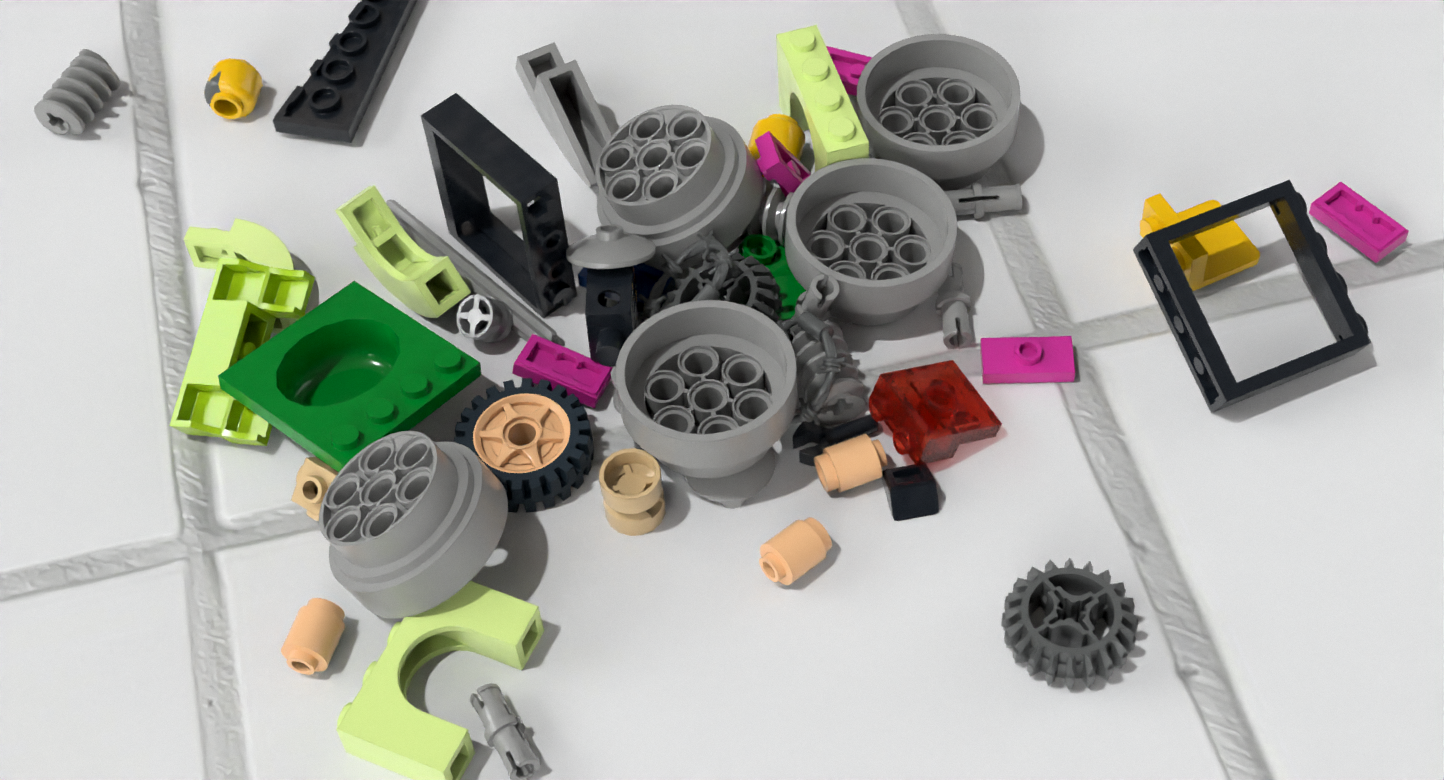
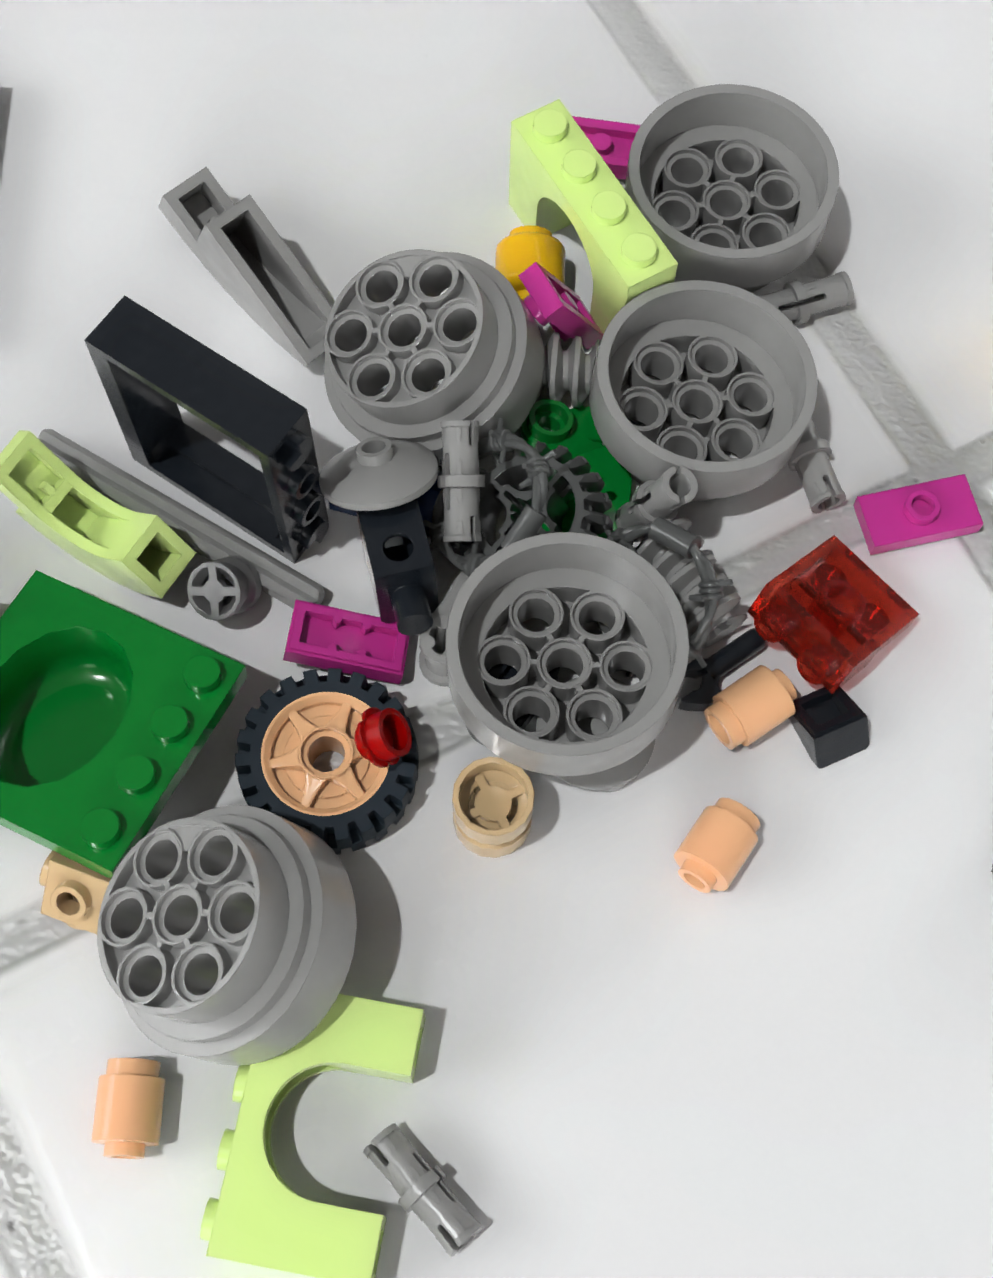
camera: 20 degrees left, 15 degrees up
(563, 422) = (383, 736): none -> red plate
(670, 265) = (461, 481): none -> light grey pin

